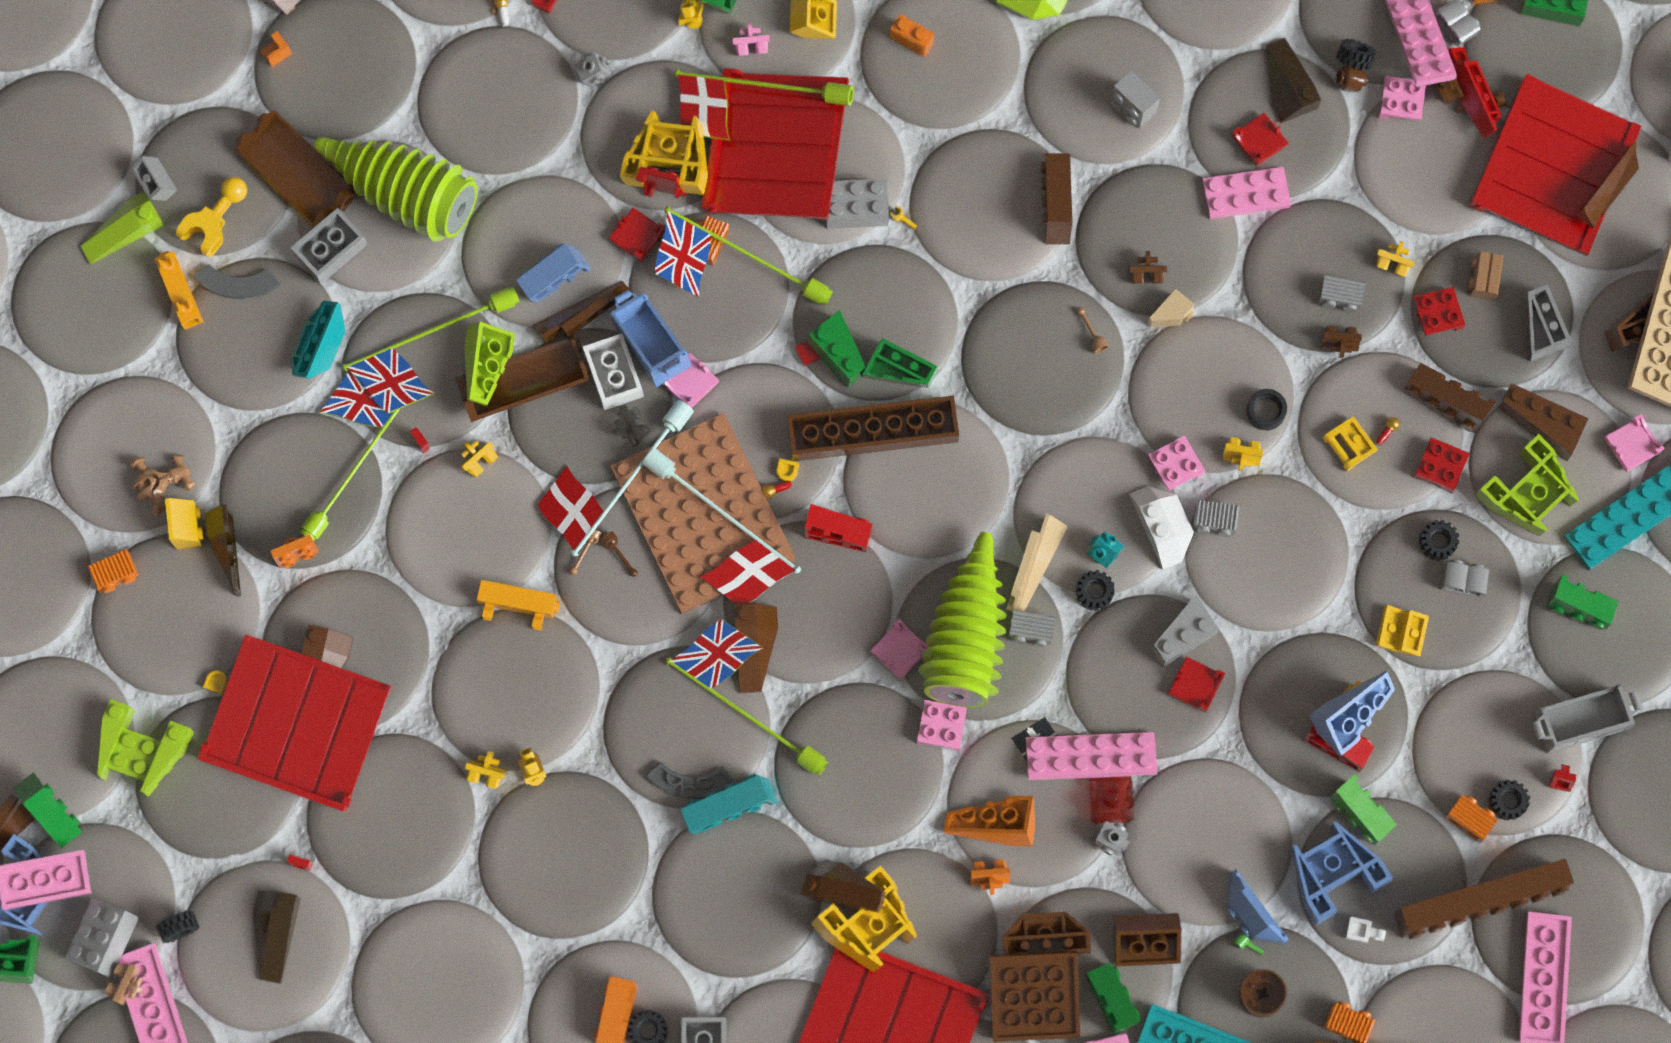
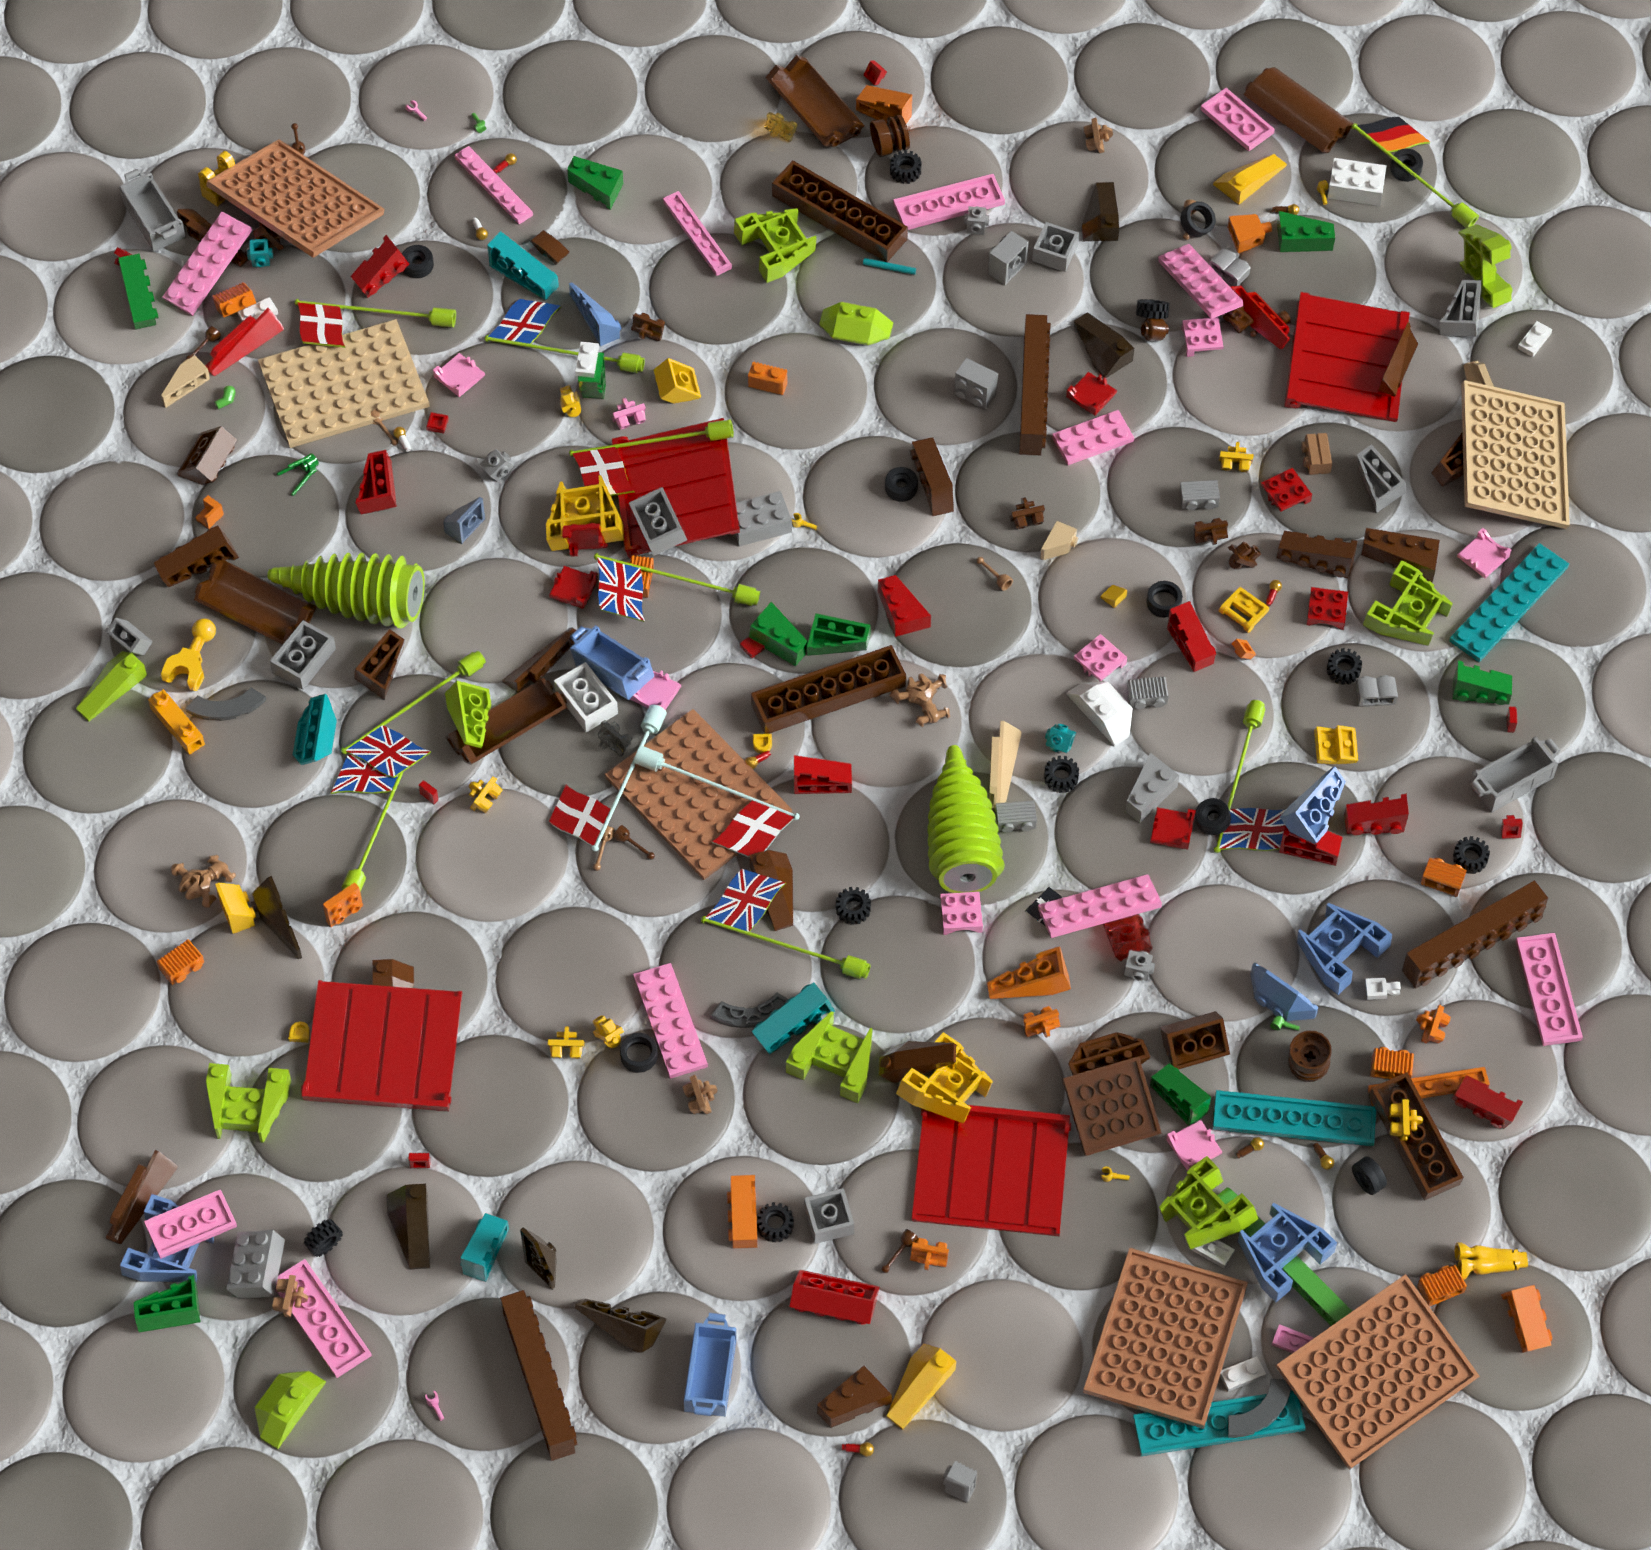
camera: 15 degrees left, 15 degrees down
(48, 810) = (178, 1167): green wedge -> none
(247, 100) = (195, 556): none -> reddish brown wedge
(340, 978) = (484, 1247): none -> teal wedge
(393, 15) = (307, 463): none -> green plant
(394, 1009) = (539, 1256): none -> dark brown wedge
(408, 277) = (380, 664): none -> reddish brown wedge
(461, 60) = (377, 487): none -> red wedge
(518, 600) = (554, 900): light orange brick -> none
(541, 128) = (465, 520): none -> sand blue slope
(552, 271) = (508, 630): medium blue wedge -> none
(558, 782) = (642, 1066): none -> black tyre
(602, 769) = (670, 1020): none -> bright pink plate
(611, 864) = (701, 1102): none -> medium nougat hips
(743, 185) = (658, 521): none -> light grey brick
(765, 854) = (834, 1052): none -> lime wedge
(829, 700) = (853, 895): none -> black tyre
(899, 649) = (905, 861): bright pink piece -> none
(972, 457) = (921, 693): none -> medium nougat piece
(979, 349) = (902, 607): none -> red wedge
(1025, 188) = (897, 493): none -> black tyre
(1199, 116) = (1035, 385): none -> reddish brown brick
(1213, 390) = (1114, 595): none -> yellow slope
(1238, 672) = (1215, 826): none -> black tyre
(1243, 455) = (1155, 637): yellow hips -> none
(1280, 703) = (1251, 827): none -> flag
(1281, 465) = (1190, 636): none -> red wedge
(1335, 491) = (1243, 649): none -> orange plate
(1362, 811) = (1347, 891): bright green wedge -> none
(1367, 381) = (1243, 555): none -> reddish brown hips
(1405, 986) = (1430, 1022): none -> orange hips
(1419, 730) = (1377, 817): none -> red wedge
(1602, 651) = (1511, 718): none -> red tile

